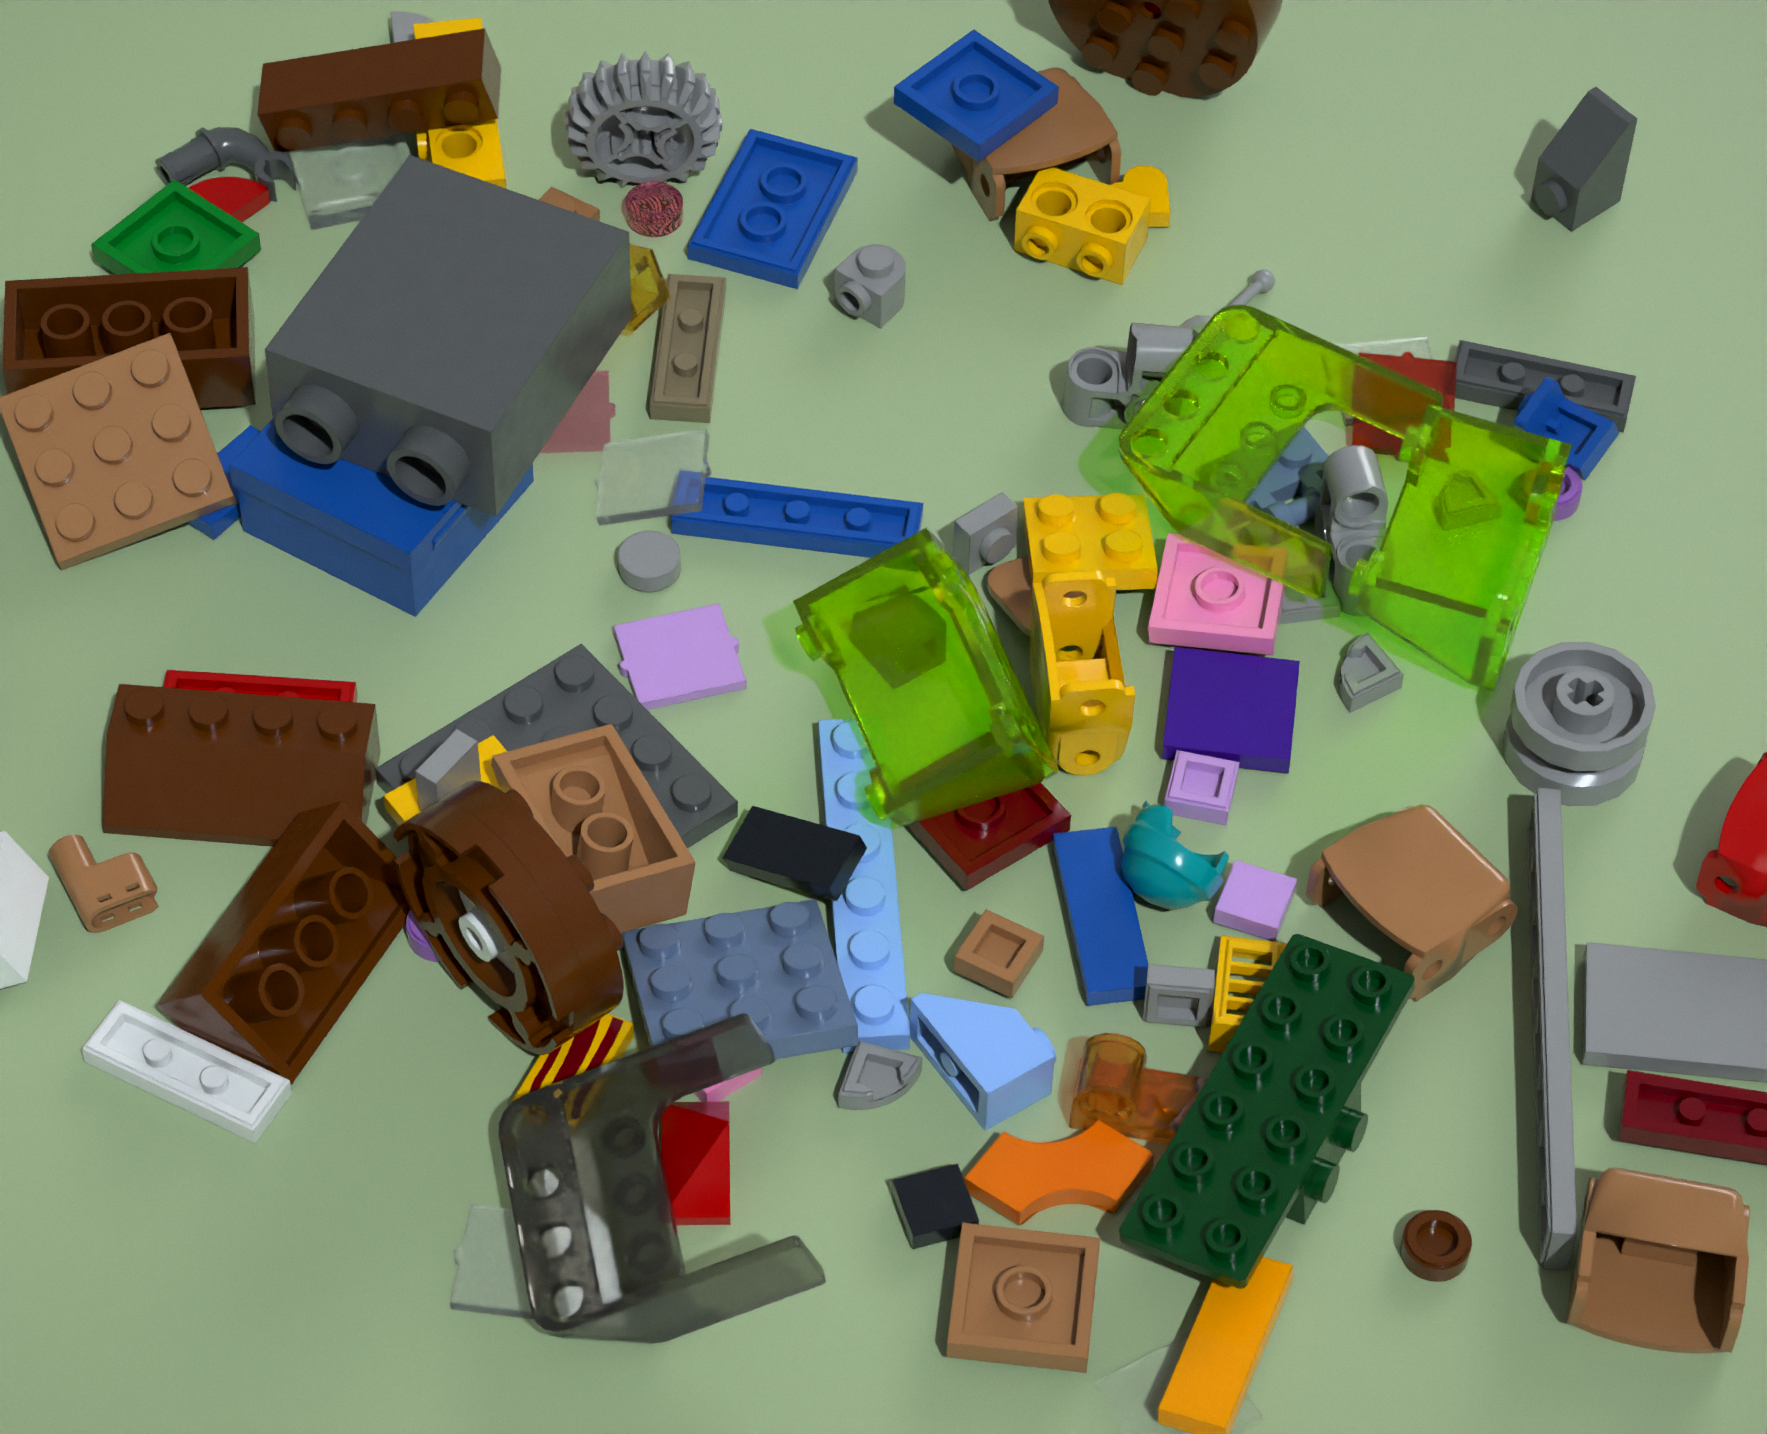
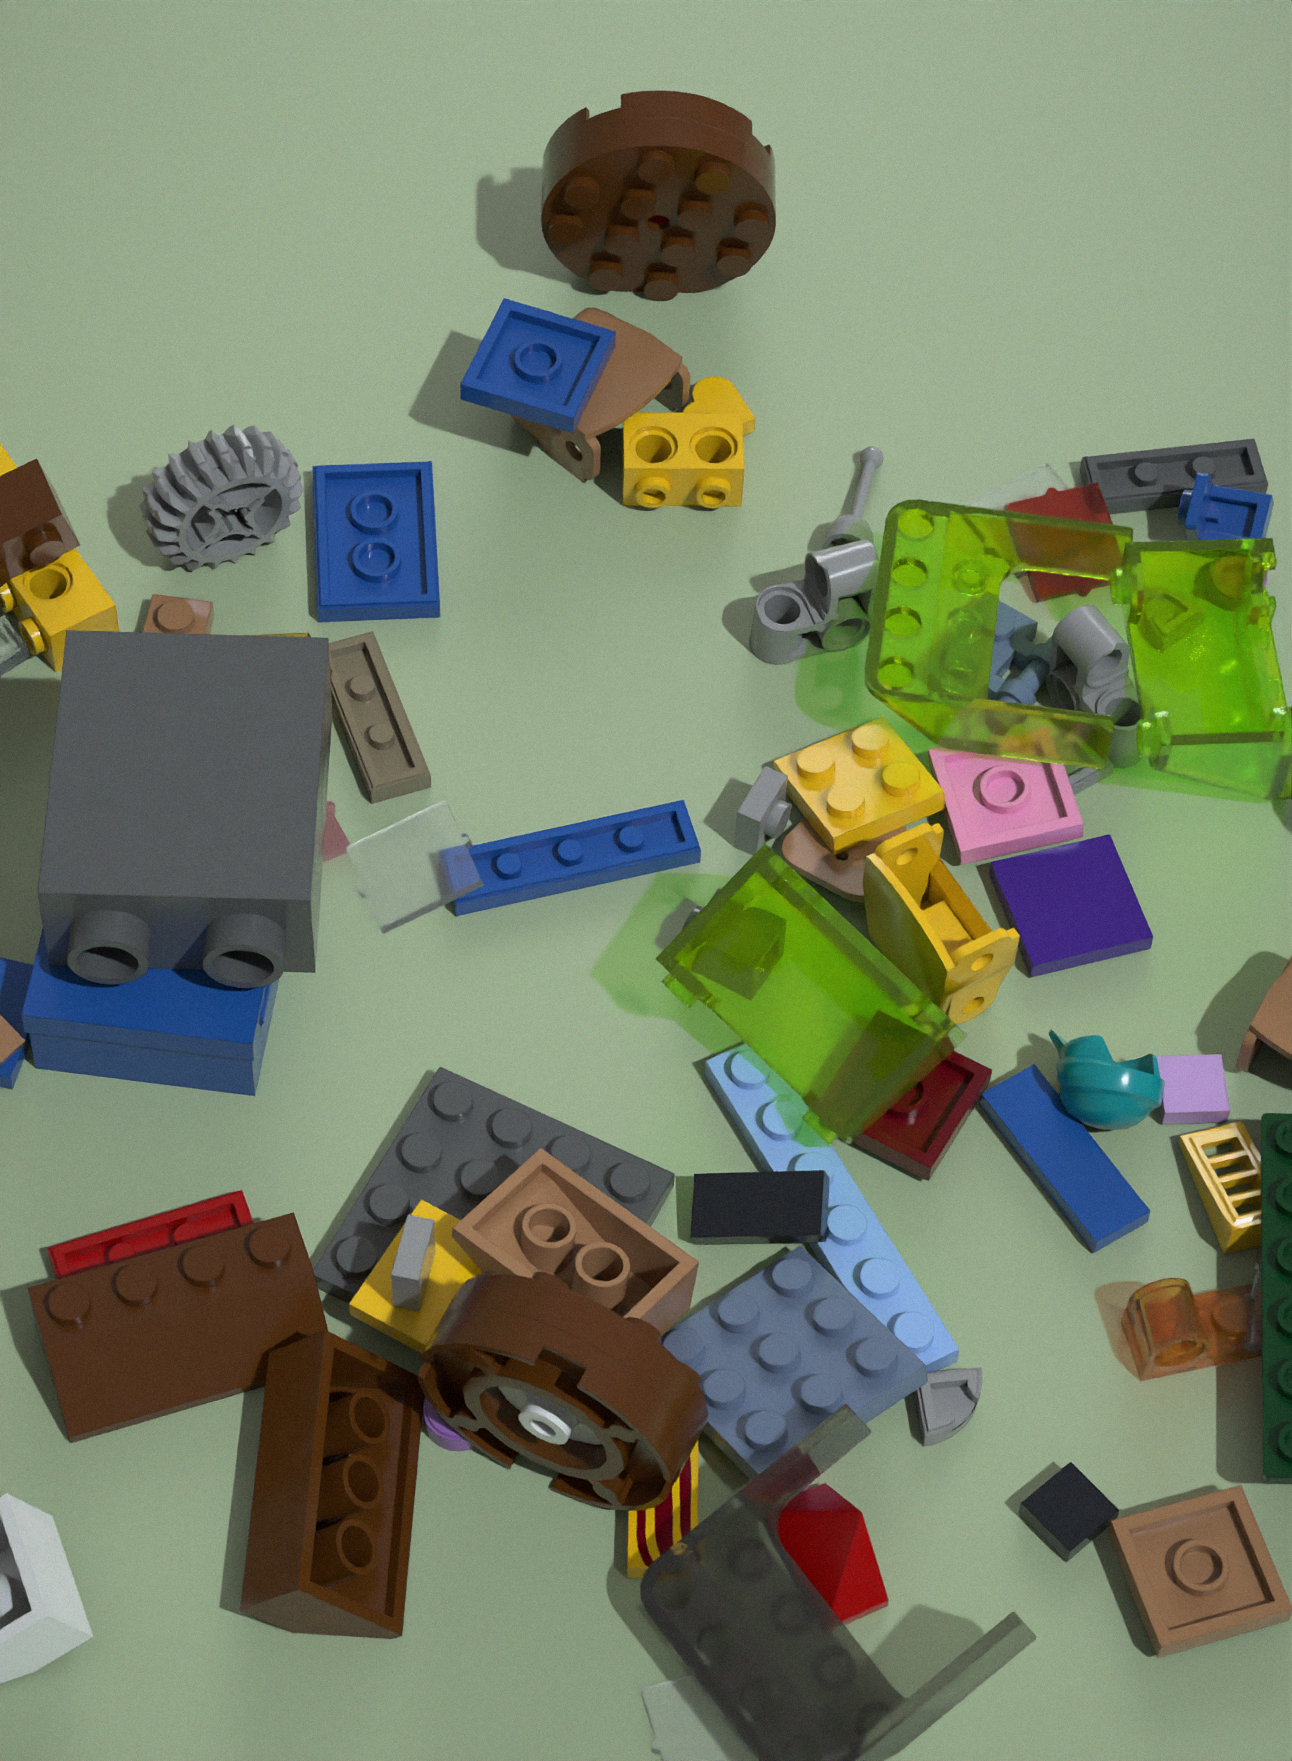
camera: 25 degrees left, 5 degrees up
(104, 887) = (110, 1504): medium nougat piece -> none
(187, 1071) = (293, 1663): white tile -> none
(649, 561) = (455, 954): light grey tile -> none
(654, 209) = (261, 582): clear pink tile -> none
(679, 657) = (534, 1042): lavender piece -> none
(871, 283) = (516, 589): light grey plate -> none
(983, 1054) = (1037, 1343): light blue slope -> none
(998, 953) = (996, 1234): medium nougat plate -> none
(1030, 1176) = (1185, 1417): orange tile -> none
(1178, 995) = (1180, 1213): light grey tile -> none
(1201, 787) = (1084, 993): lavender tile -> none
(1367, 674) = (1169, 823): light grey tile -> none
(1585, 161) = (1111, 240): dark grey slope -> none

